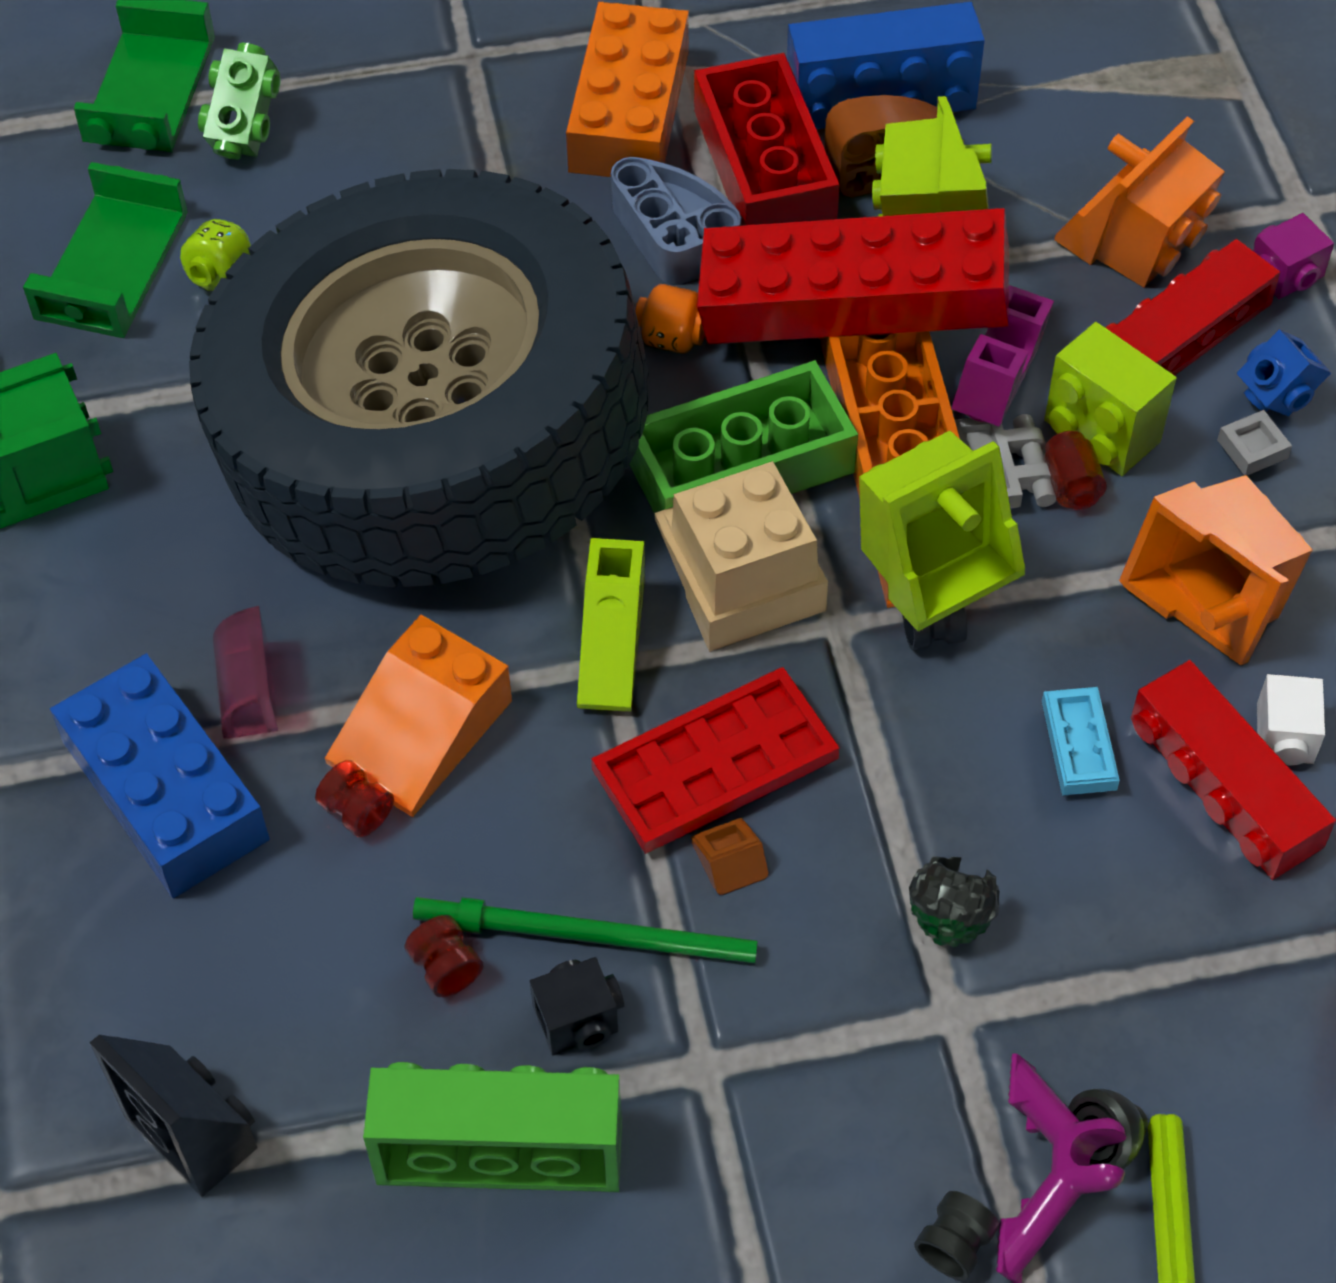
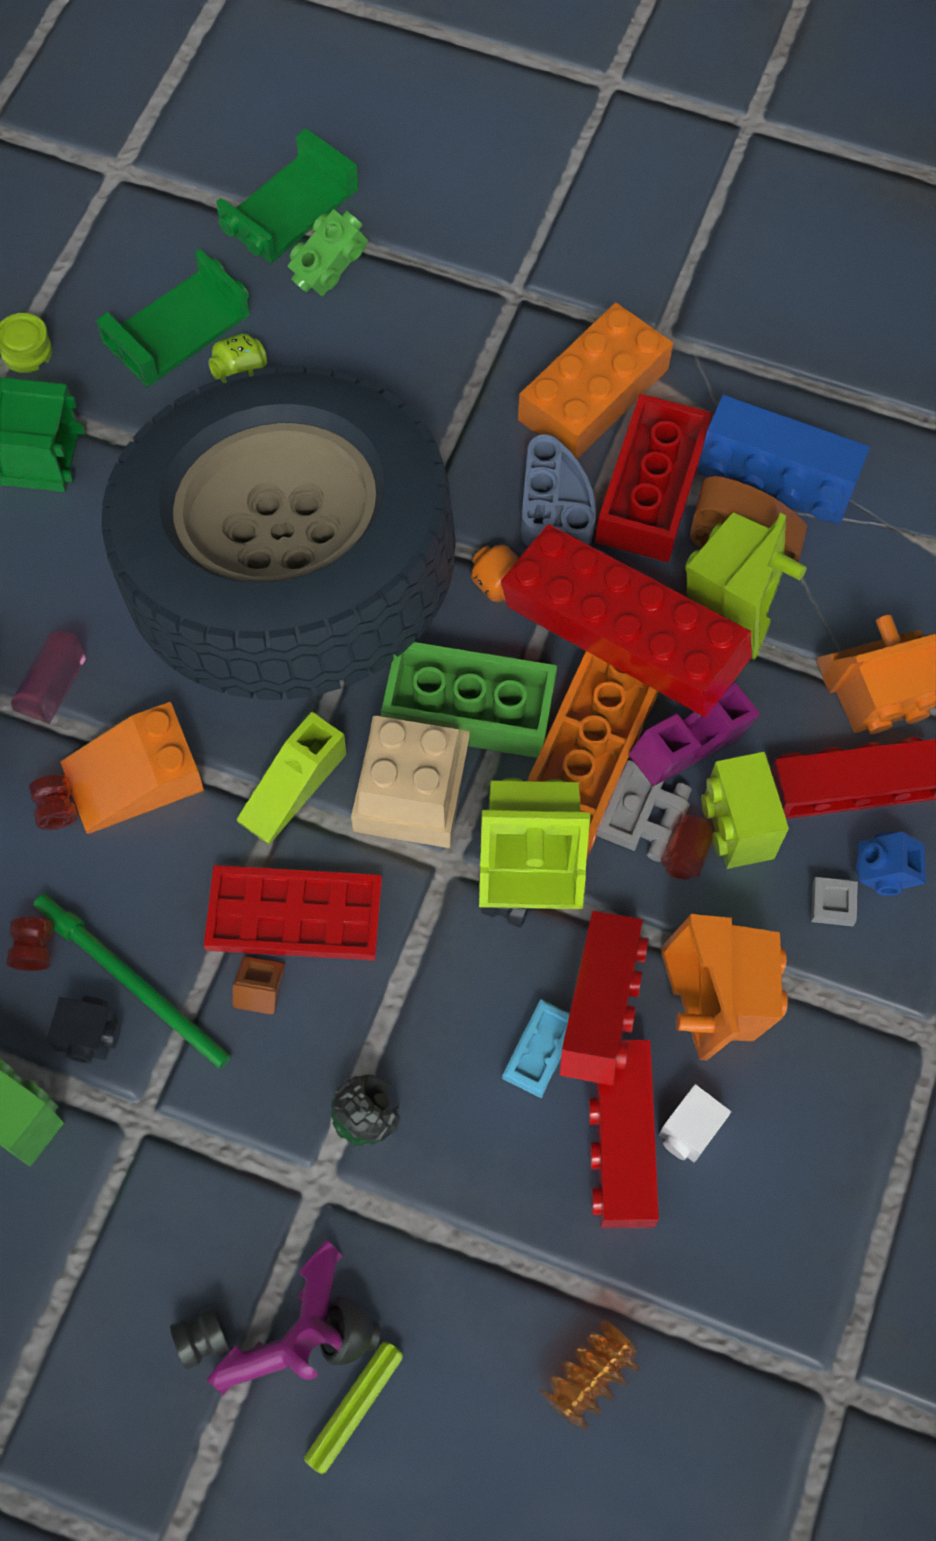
camera: 30 degrees right, 10 degrees up
(1115, 645) = (602, 997): none -> red brick

